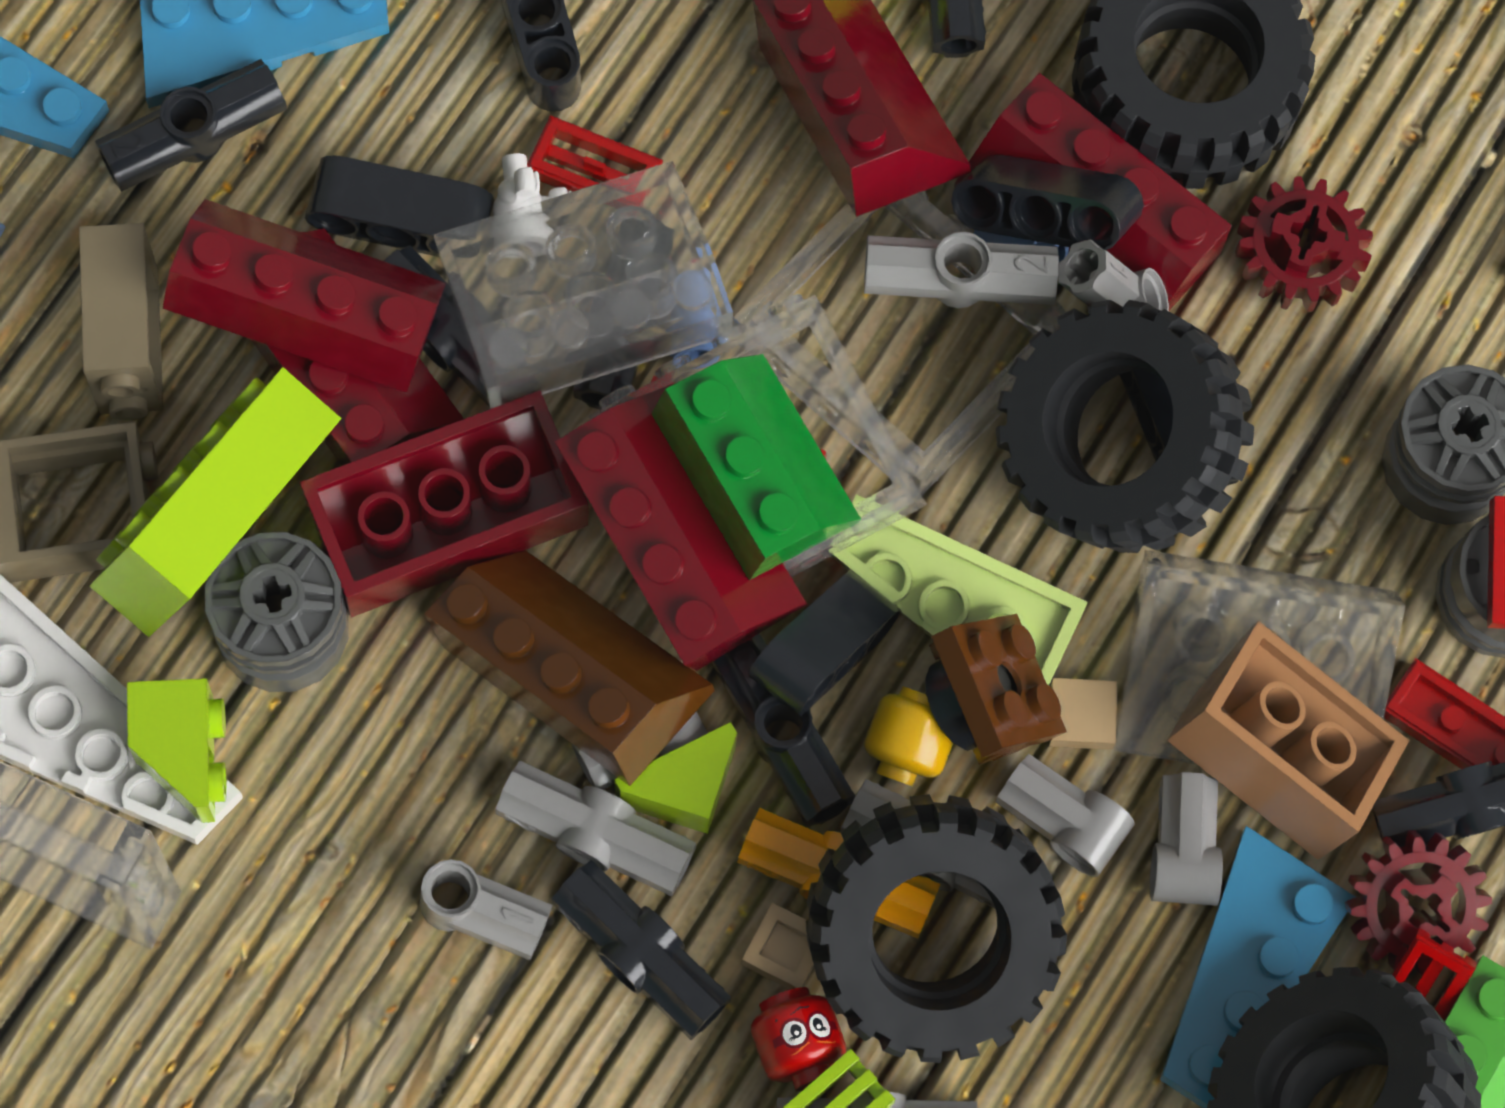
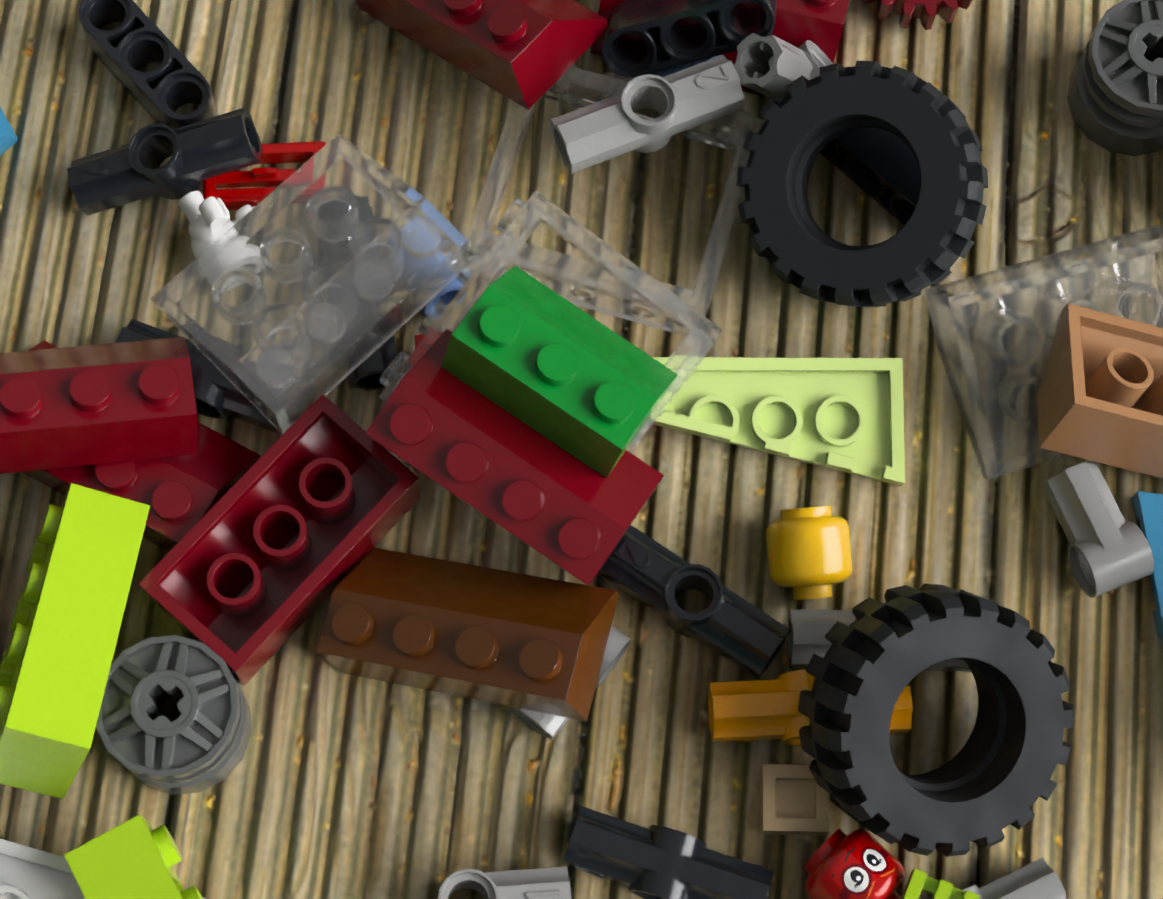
camera: 25 degrees left, 0 degrees up
(391, 203) = (96, 289): black beam -> none
(540, 117) = (195, 151): none -> black piece
(595, 828) = (569, 774): light grey piece -> none
(684, 782) = (631, 692): lime slope -> none
(824, 643) = (694, 505): black beam -> none
(991, 689) = (865, 476): reddish brown piece -> none
(1080, 824) = (997, 558): light grey piece -> none
(1087, 713) = (944, 459): tan tile -> none

